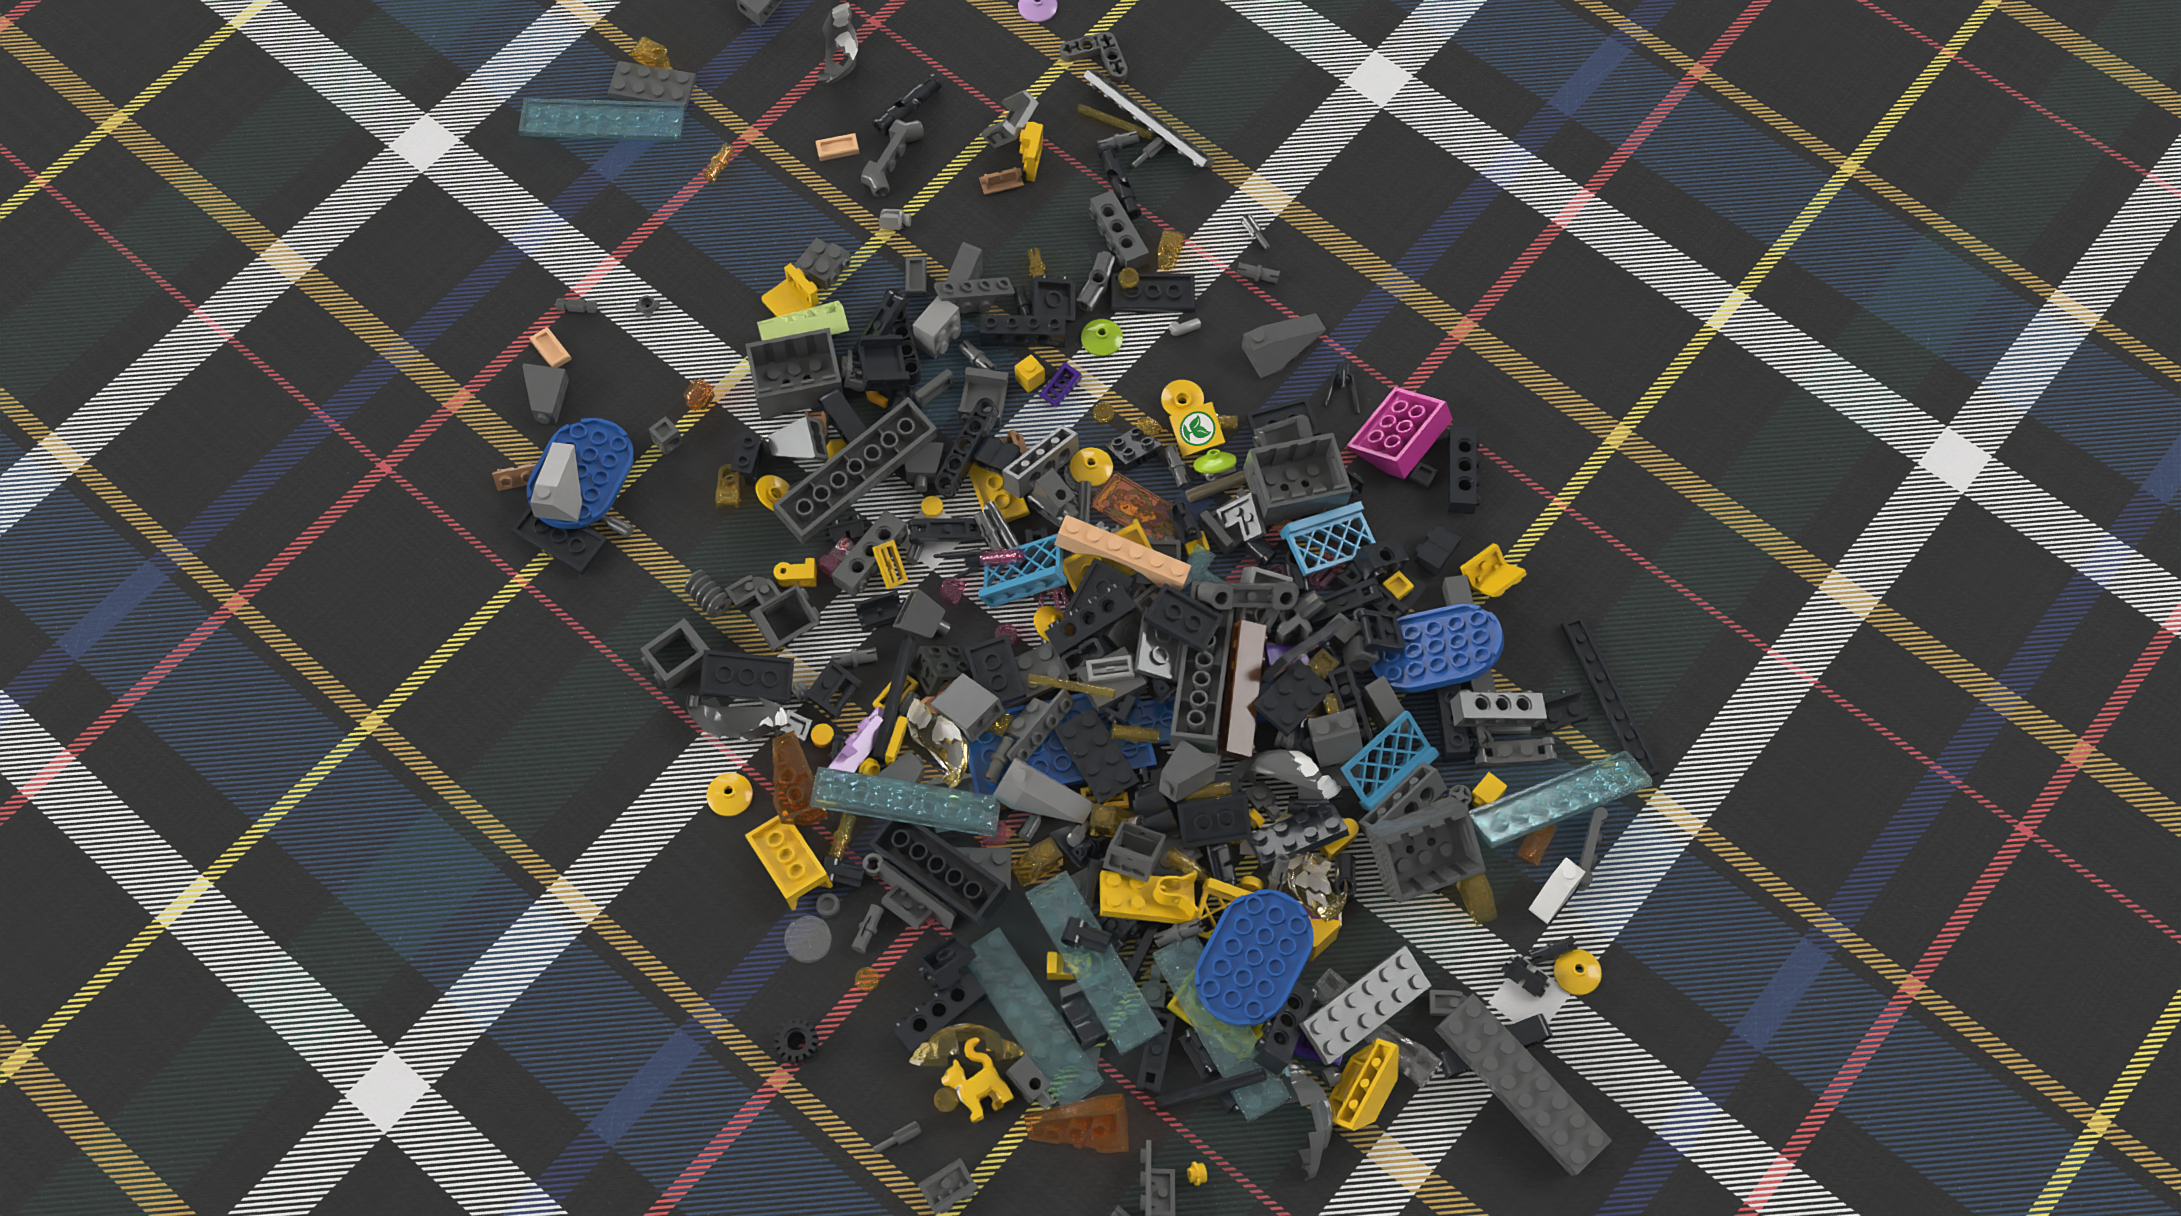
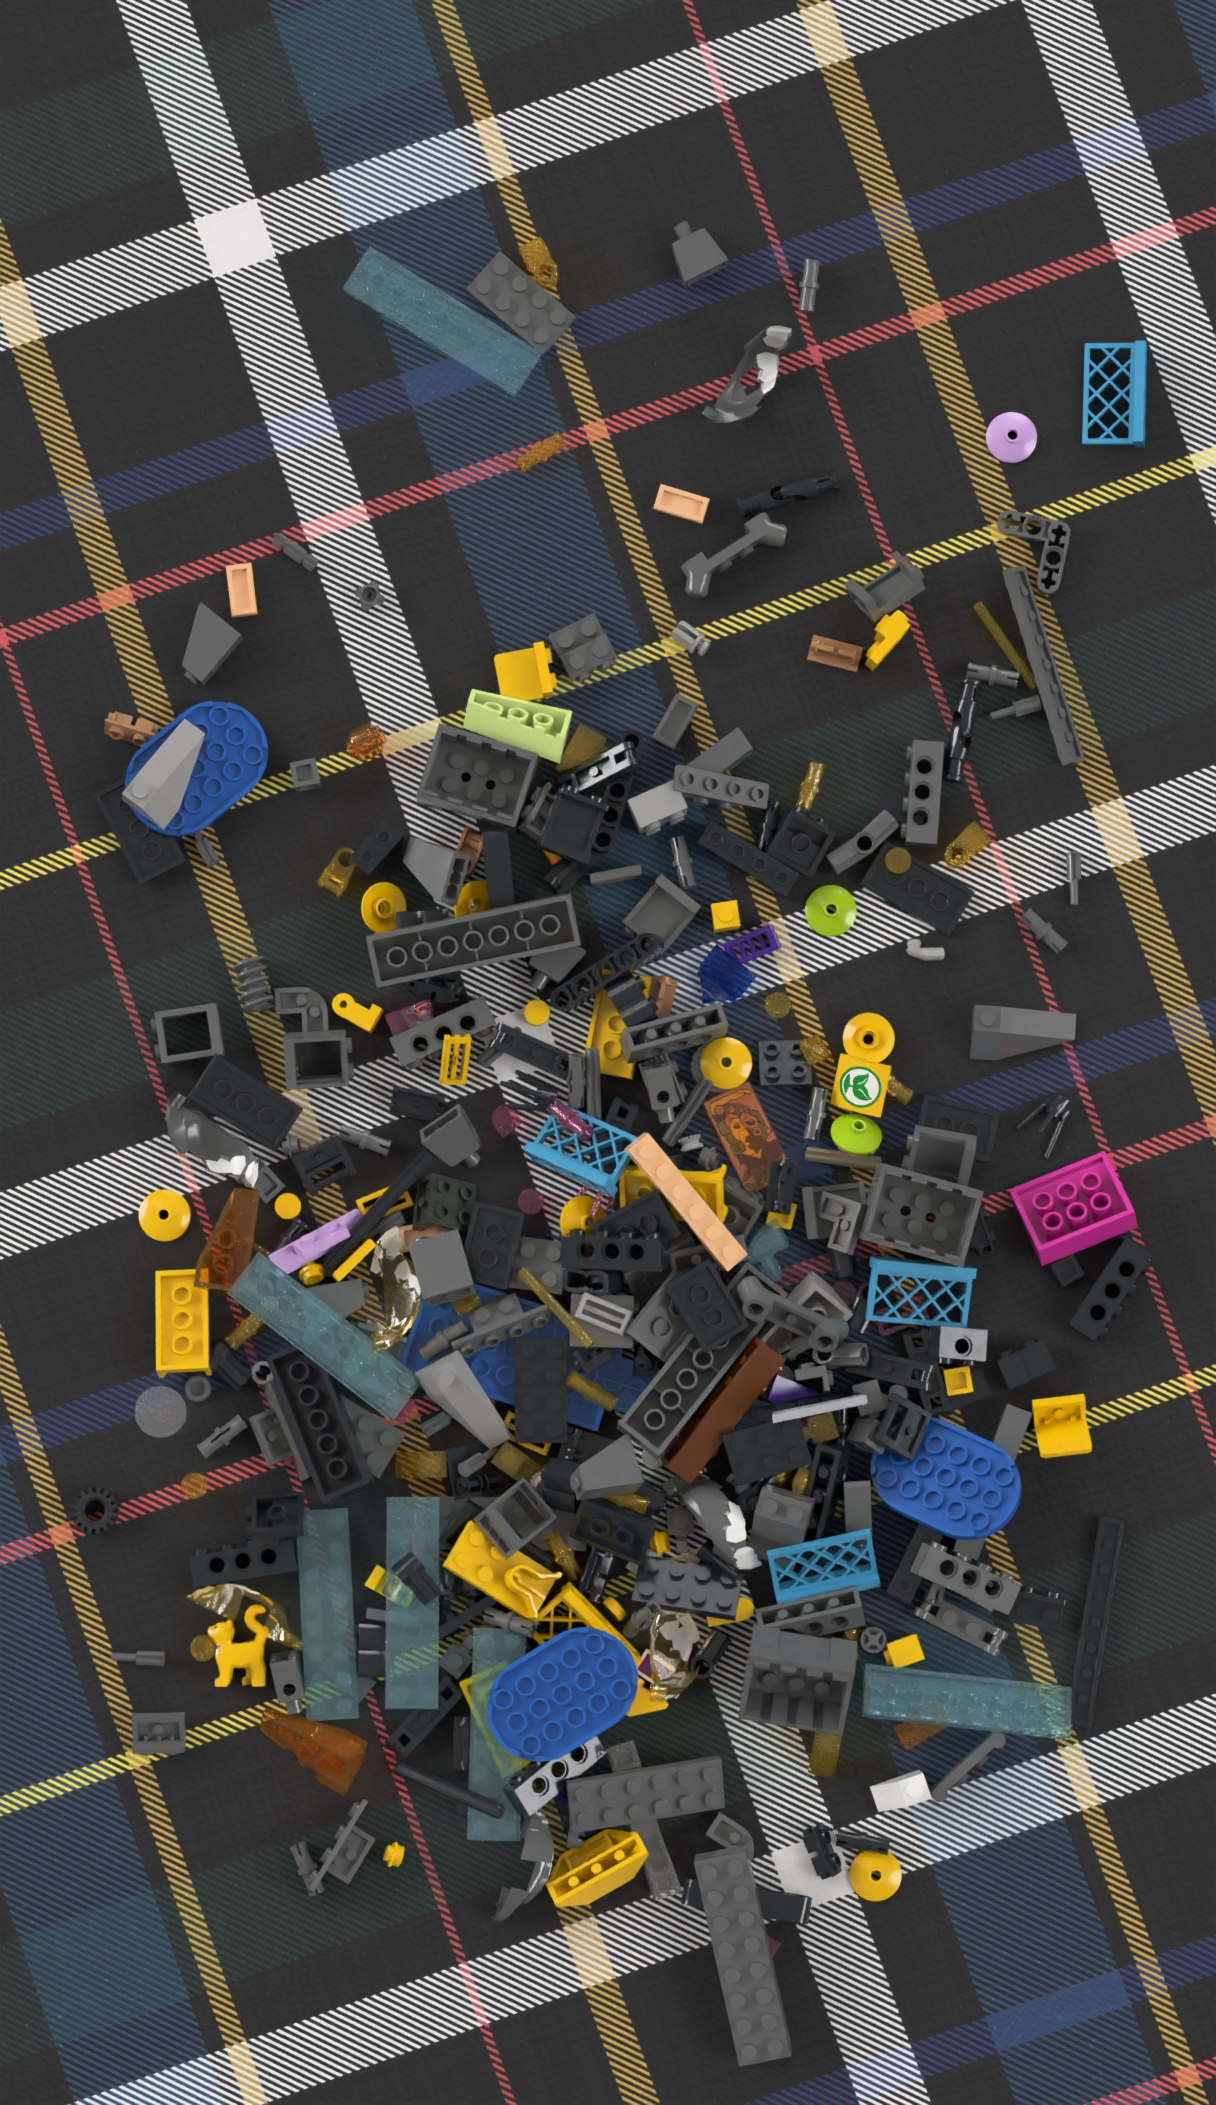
camera: 30 degrees right, 20 degrees up
(858, 318) = (583, 747): none -> clear yellow slope
(1052, 413) = (723, 977): none -> clear blue slope

